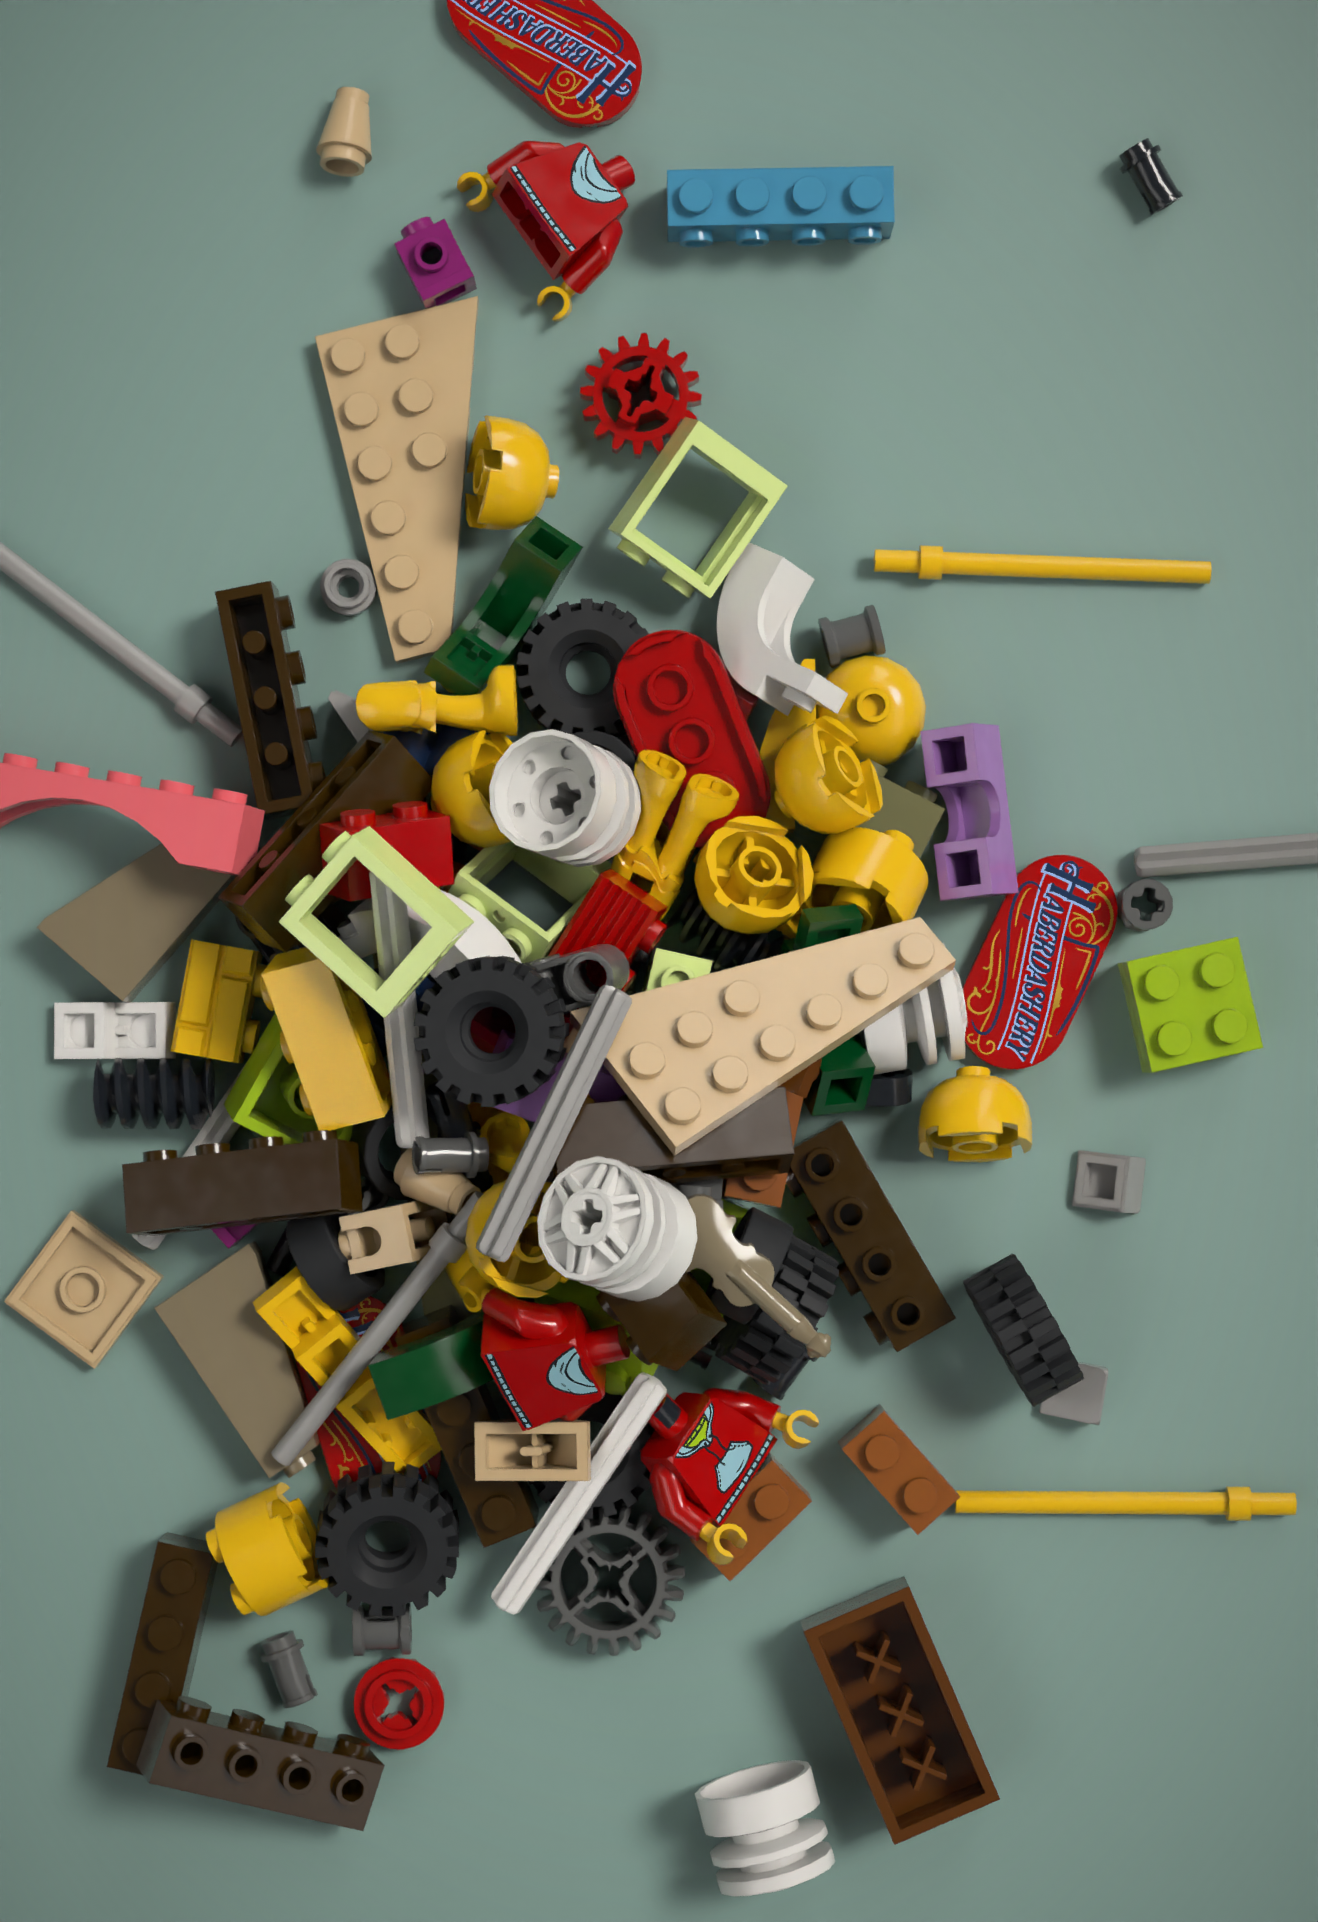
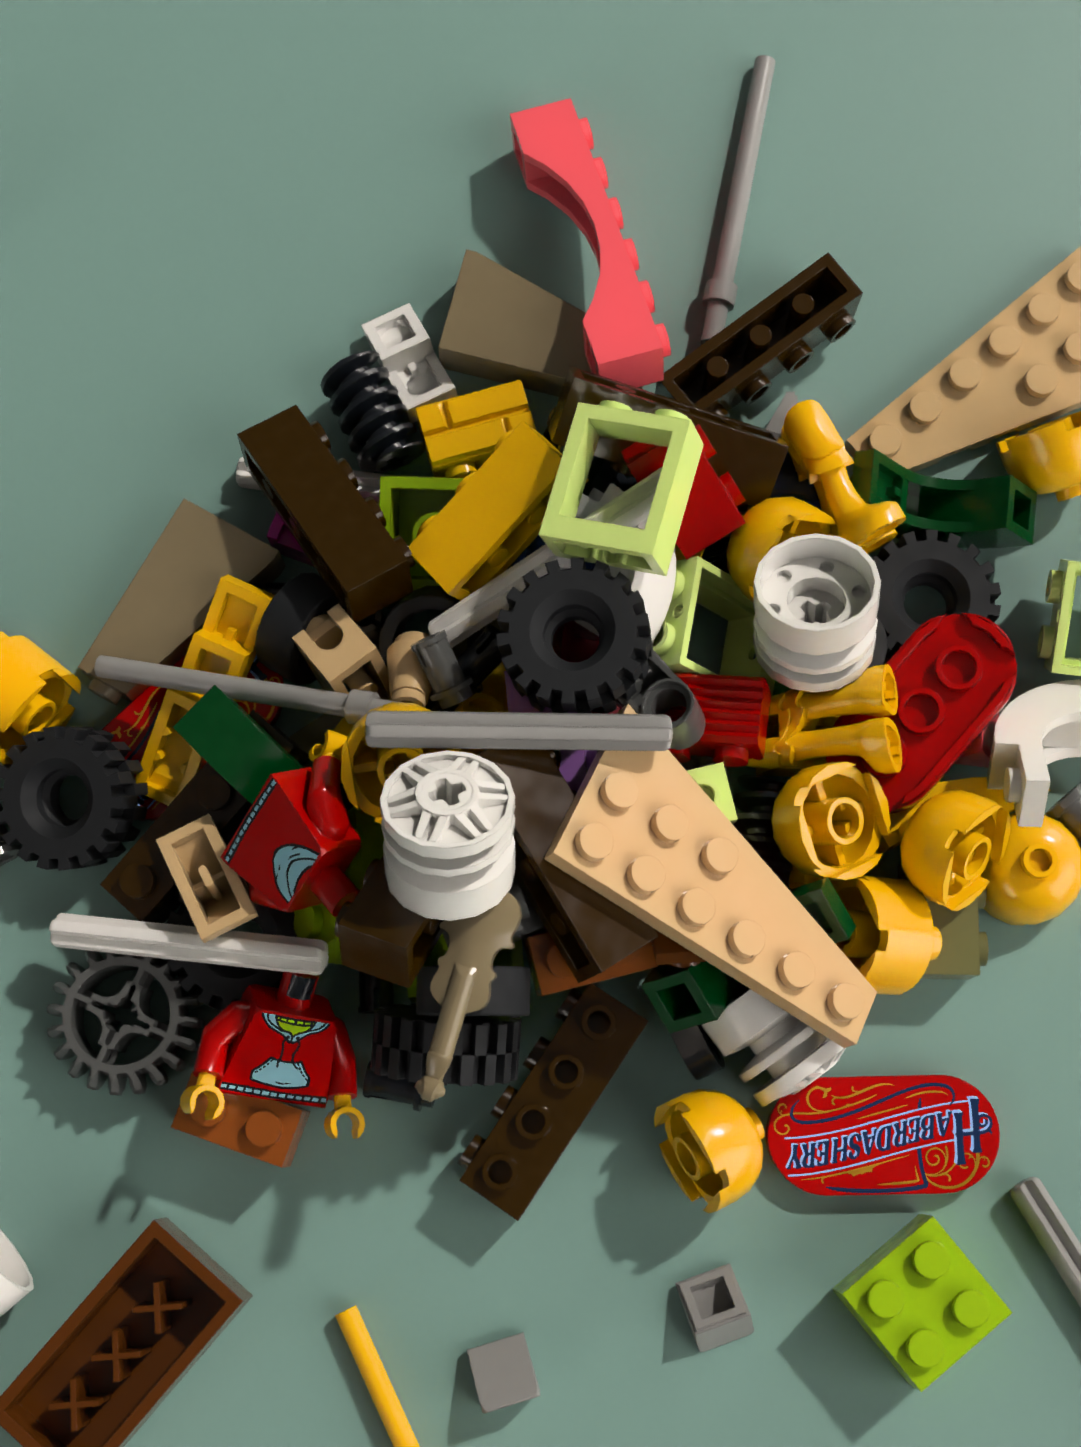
camera: 65 degrees right, 10 degrees down
(84, 1289) = (174, 443): tan tile -> none
(336, 574) = (887, 358): light grey plate -> none
(898, 1469) = (349, 1239): dark orange brick -> none
(970, 775) = (1025, 980): medium lavender arch -> none
(1023, 1329) = (538, 1292): black tyre -> none
(1156, 894) = (1004, 1219): dark grey bush -> none

